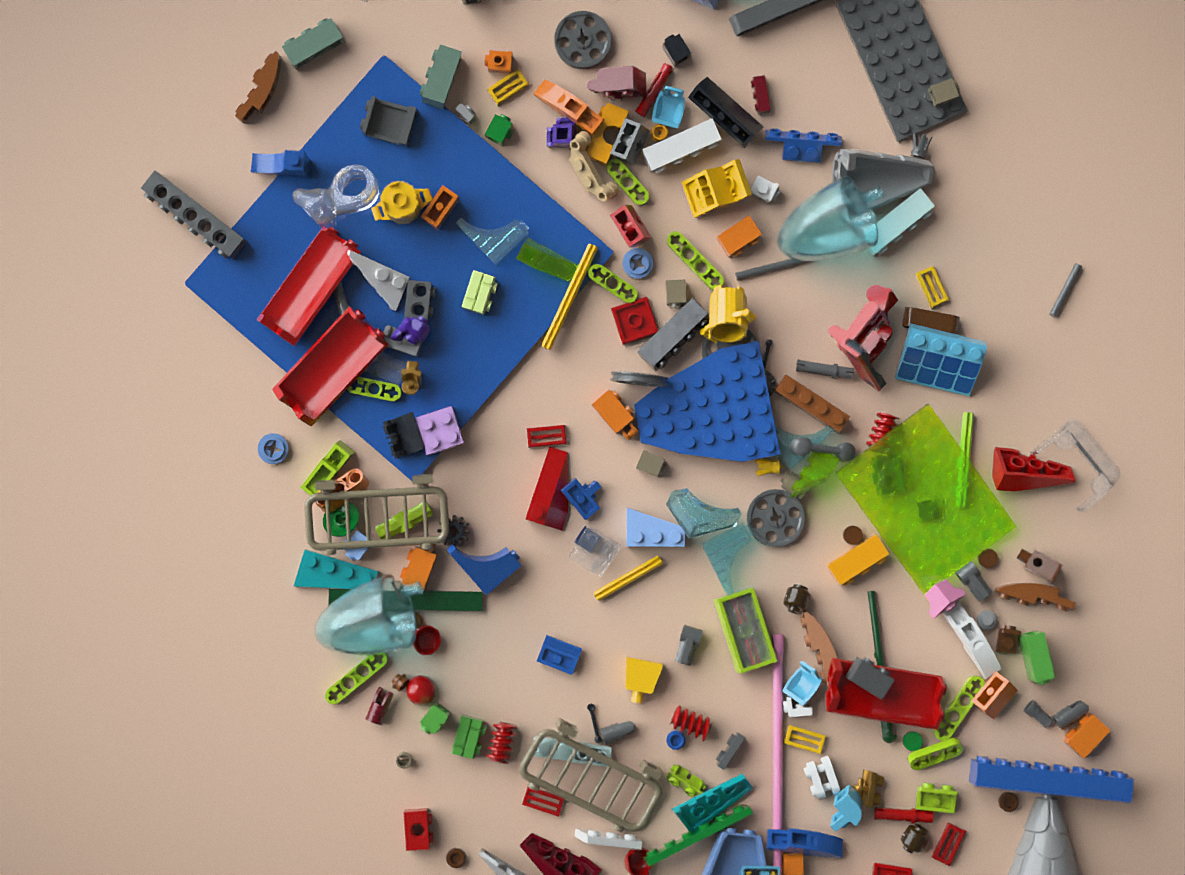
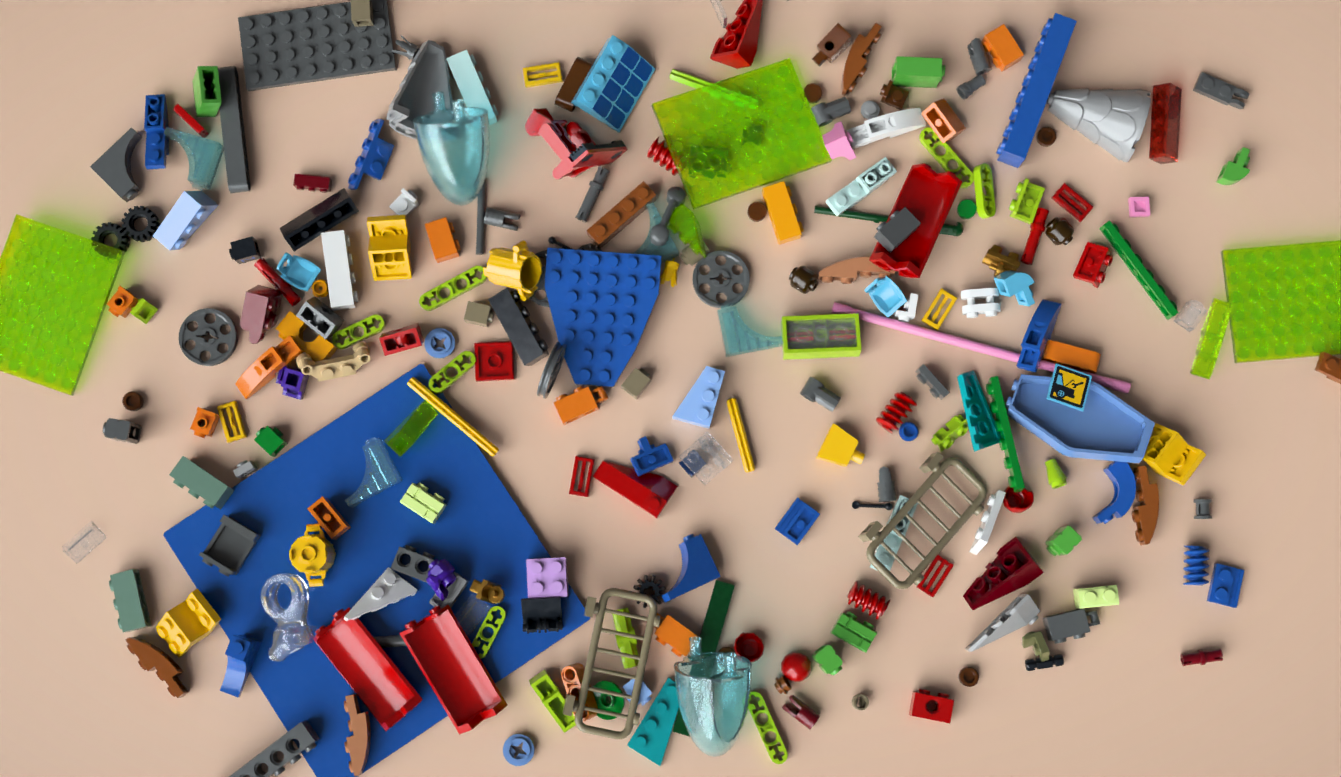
camera: 75 degrees left, 5 degrees down
(238, 297) = (359, 743): none -> nougat slope
(306, 104) = (188, 623): none -> yellow bracket
(698, 517) = (699, 351): clear light blue arch -> none
(775, 282) = (497, 218): none -> dark grey hinge
(905, 631) = (861, 186): none -> light aqua slope

